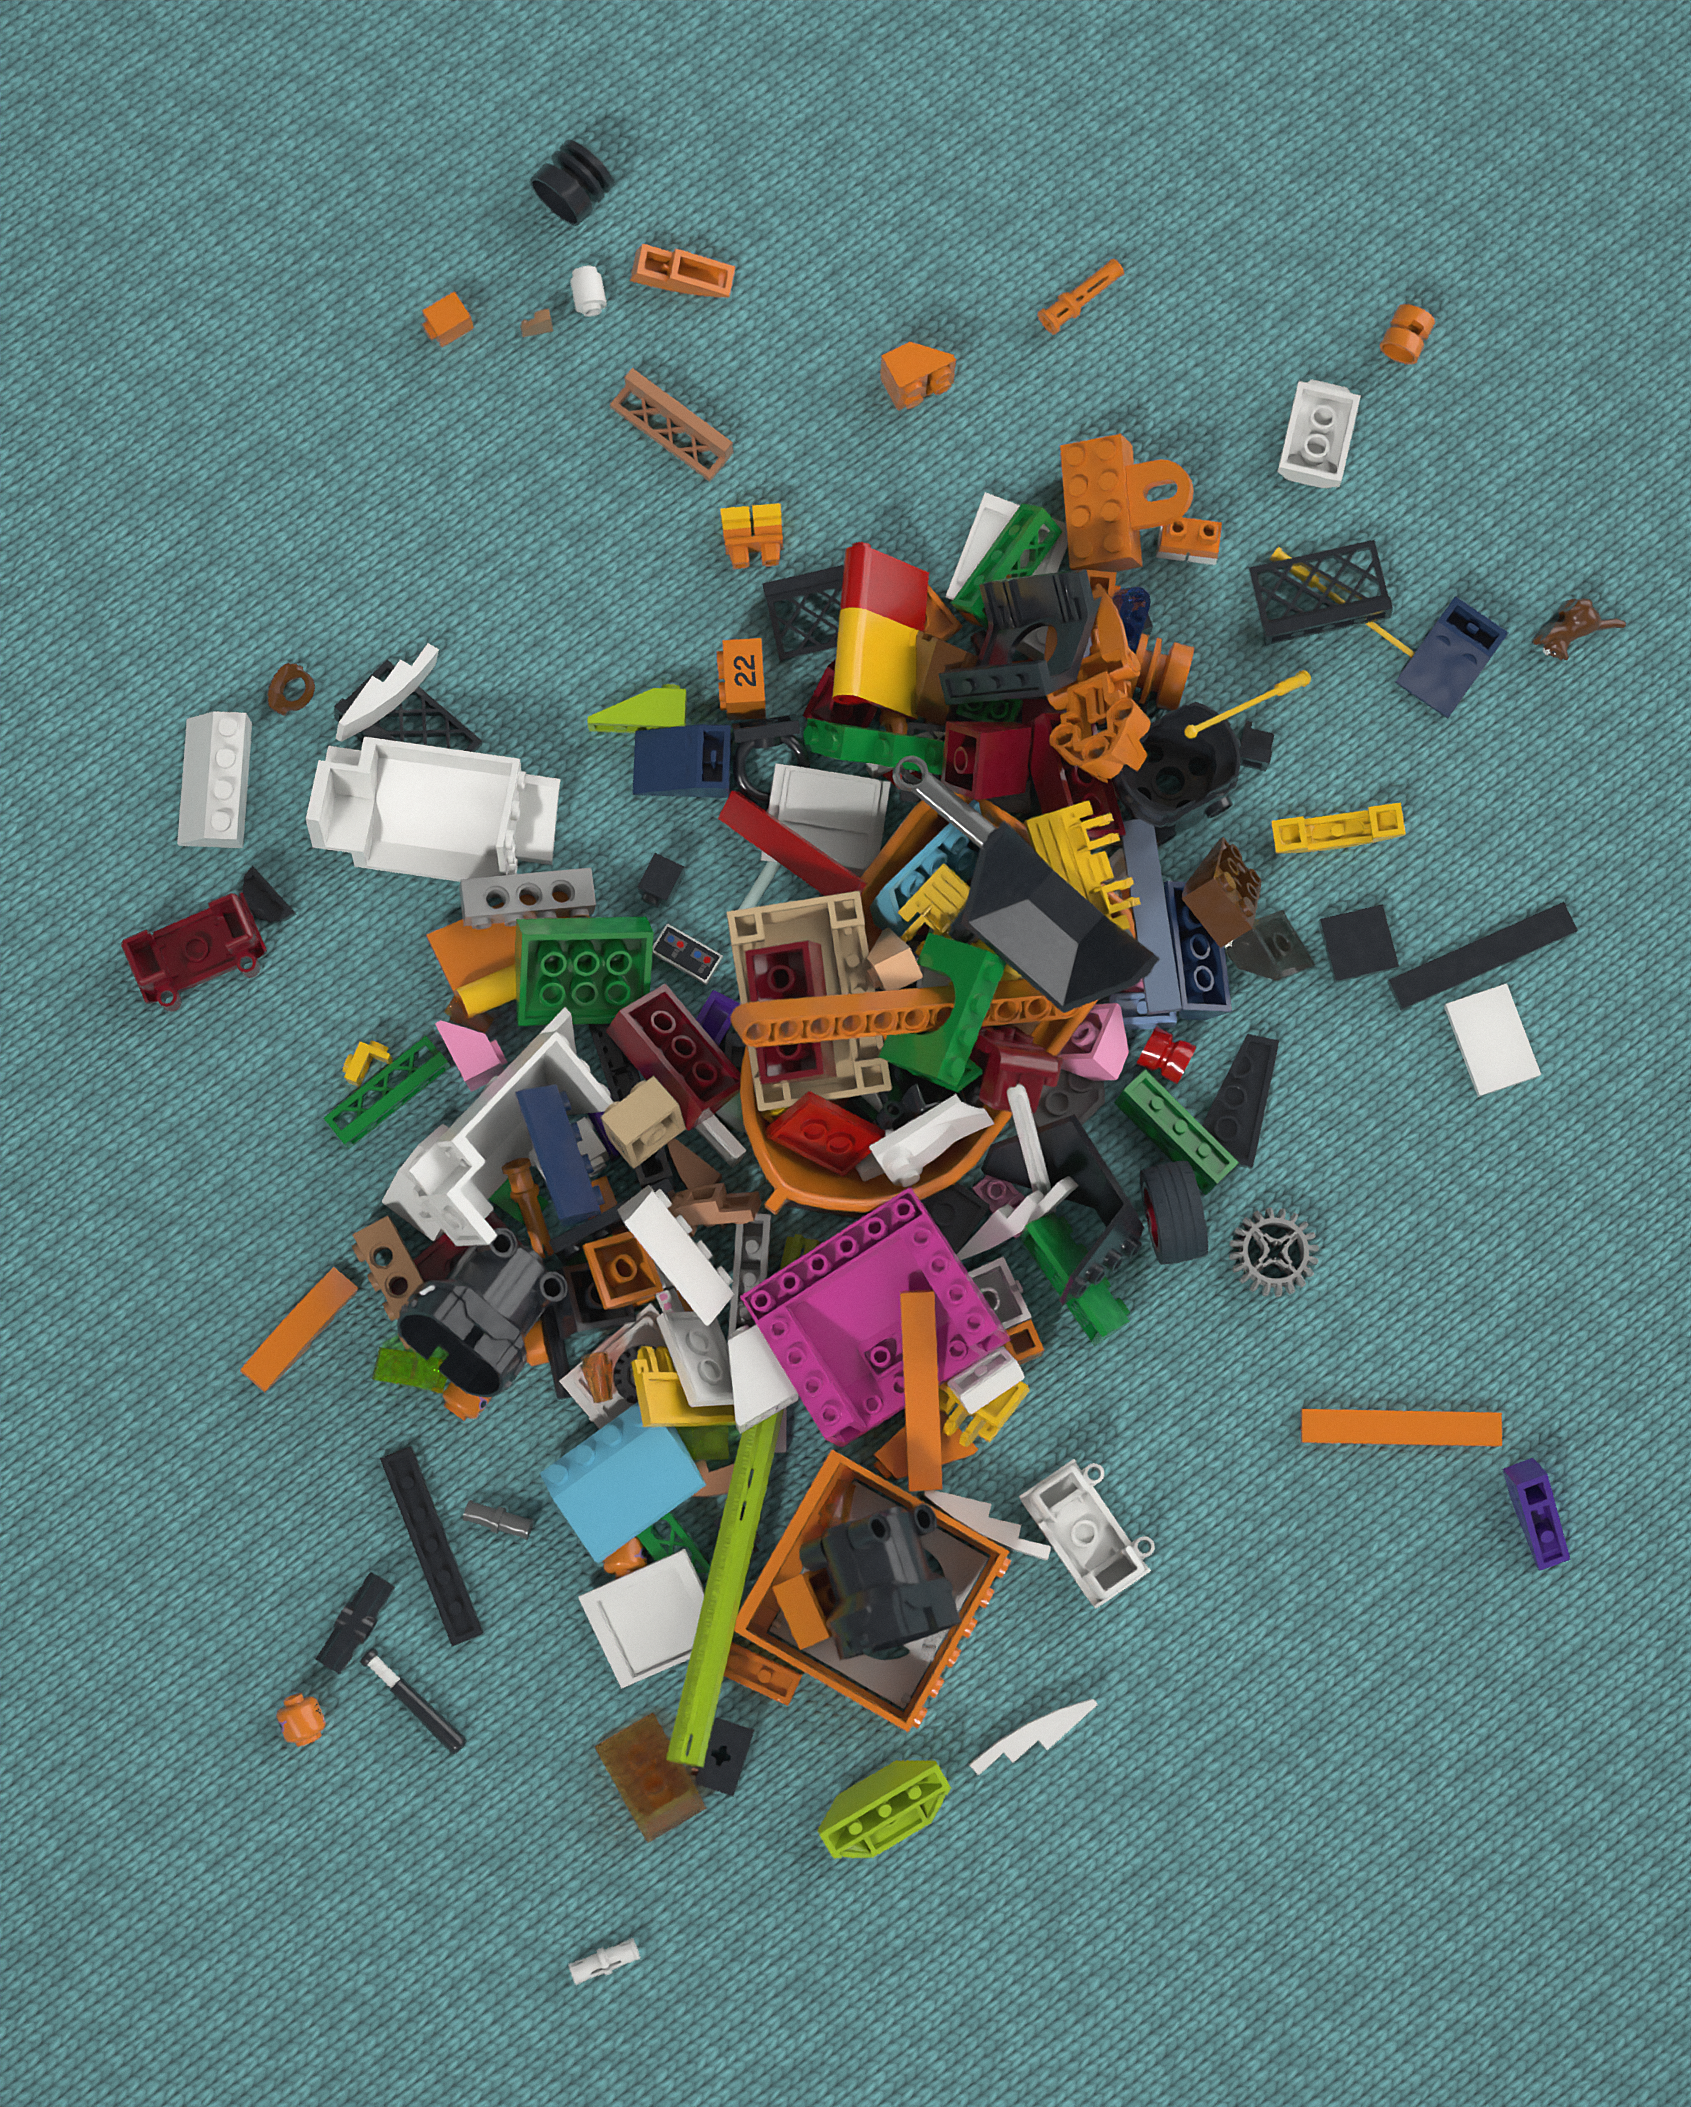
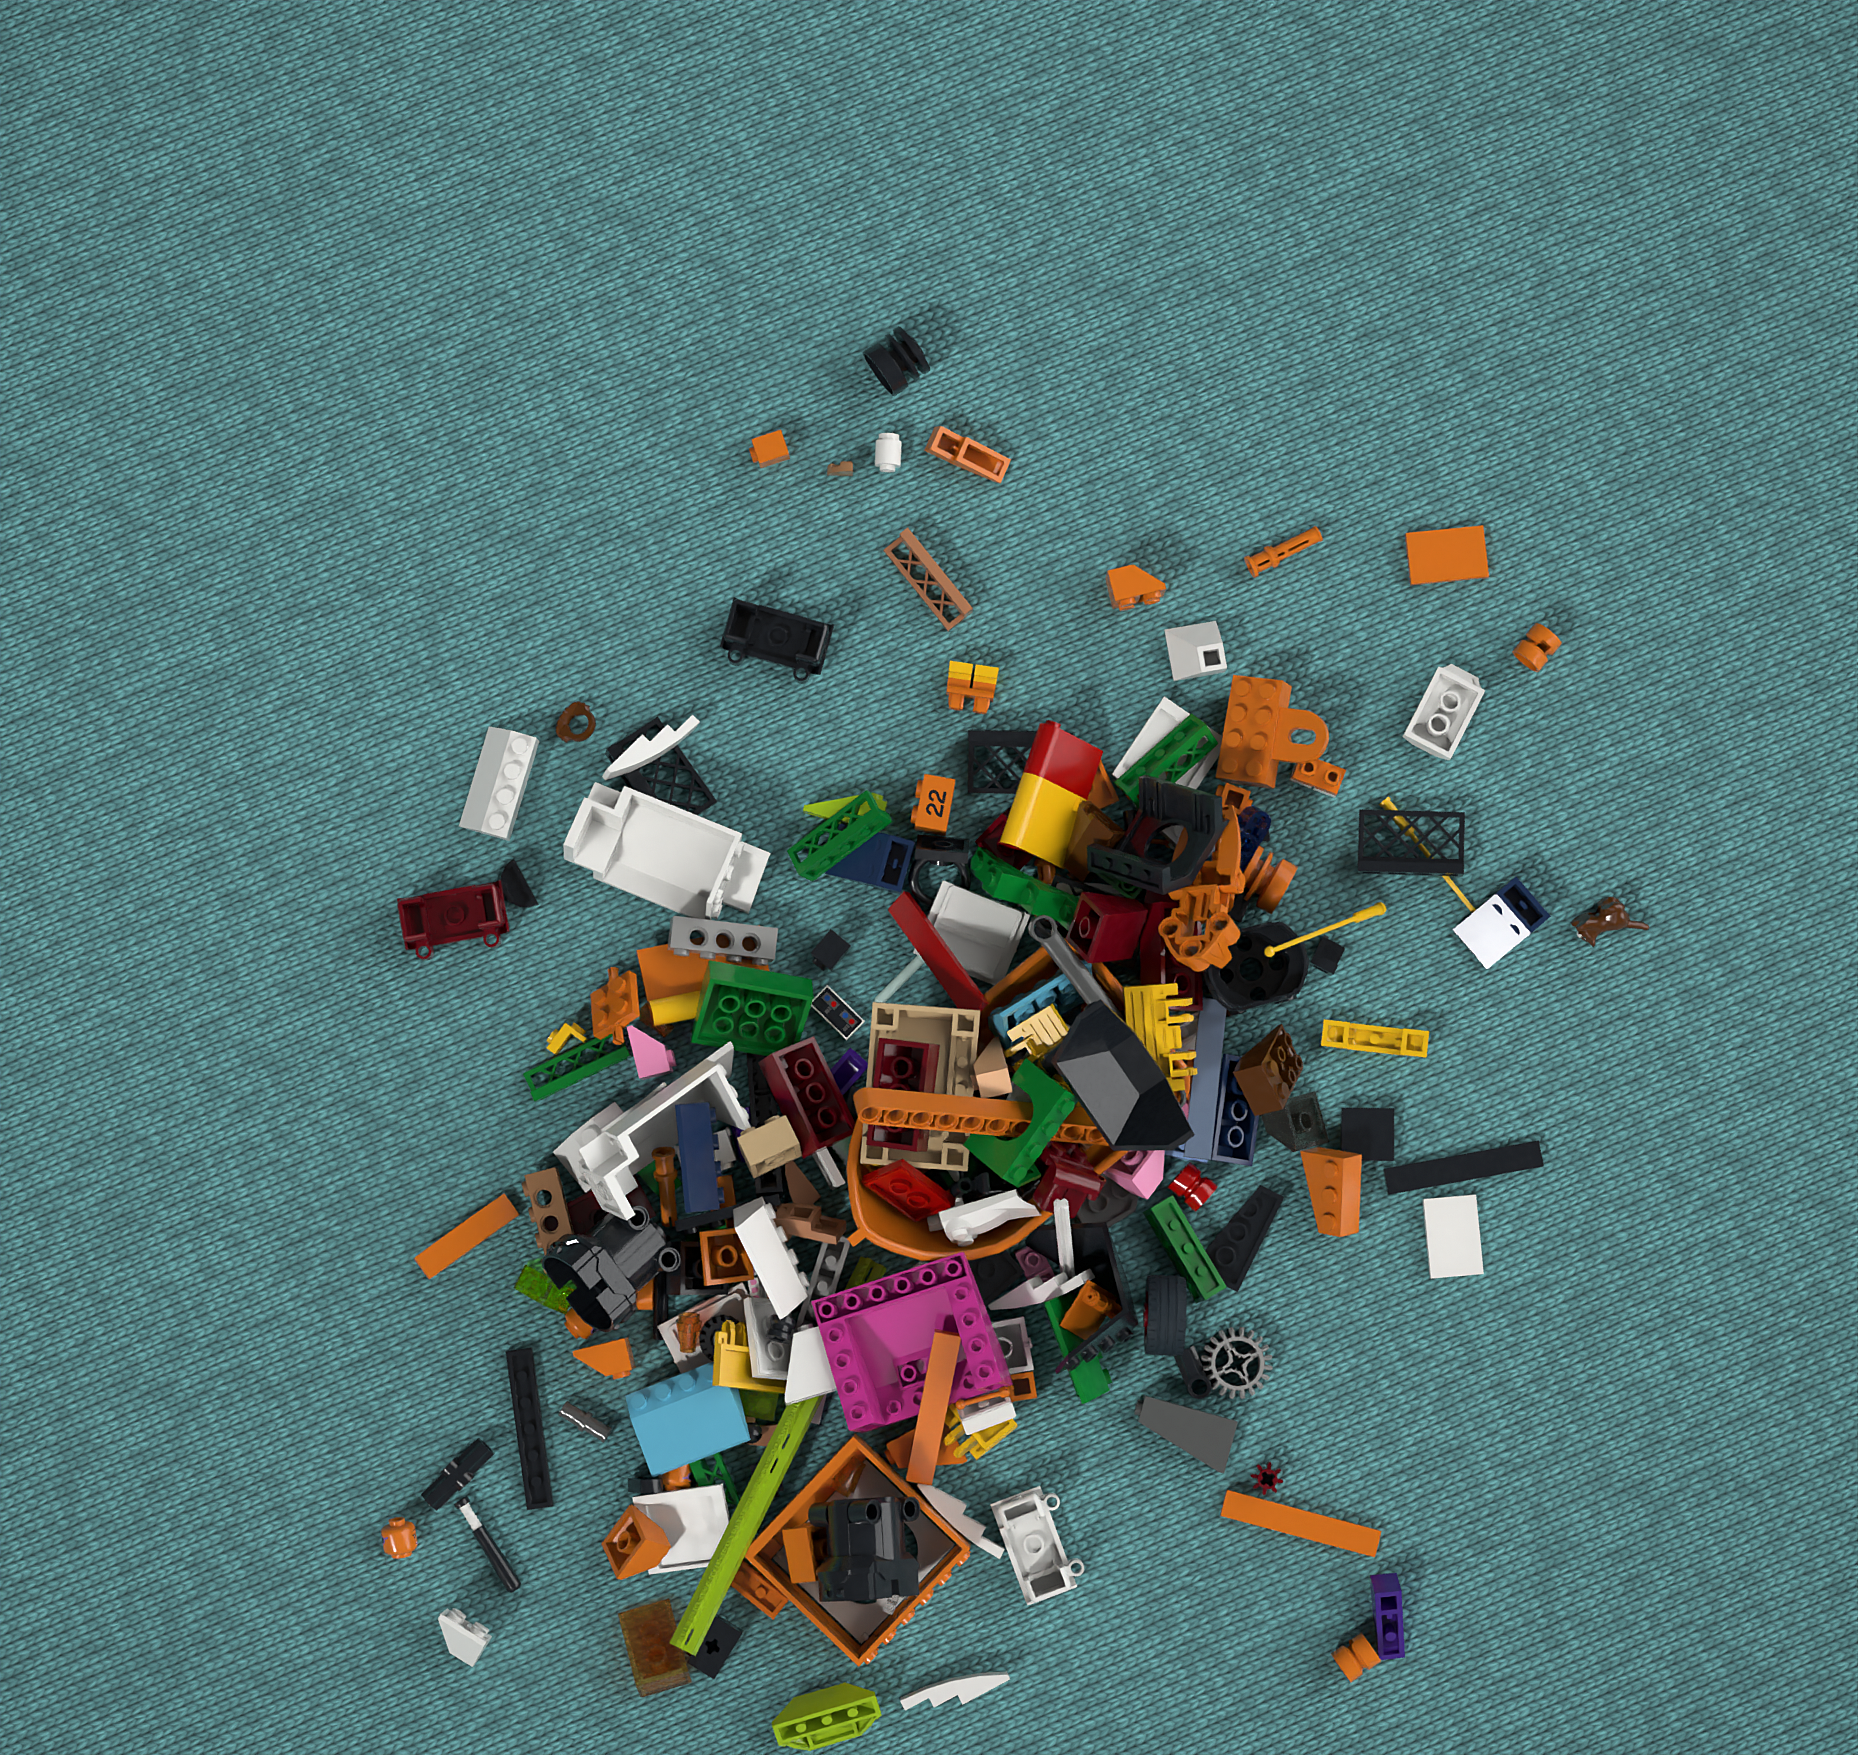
camera: 15 degrees right, 5 degrees up
(408, 1824) = (462, 1637): none -> white slope
(415, 1005) = (615, 1005): none -> orange plate
(506, 533) = (776, 638): none -> black container
(508, 1431) = (609, 1358): none -> orange slope
(590, 1577) = (645, 1485): none -> black beam
(595, 1653) = (635, 1544): none -> orange slope
(642, 748) = (839, 845): none -> green fence
(710, 1477) = (754, 1432): none -> black hinge
(711, 1341) = (781, 1329): none -> black wheel
(1001, 1350) = (1003, 1392): none -> orange hinge
(1009, 433) = (1195, 651): none -> white slope
(1081, 1223) = (1090, 1310): none -> orange hinge
(1221, 1275) = (1191, 1370): none -> black piece
(1239, 1346) = (1193, 1430): none -> dark grey slope
(1273, 257) = (1446, 555): none -> orange tile
(1337, 1015) = (1334, 1189): none -> orange wedge
(1356, 1382) = (1274, 1480): none -> dark red gear
(1512, 1572) = (1356, 1657): none -> orange wheel

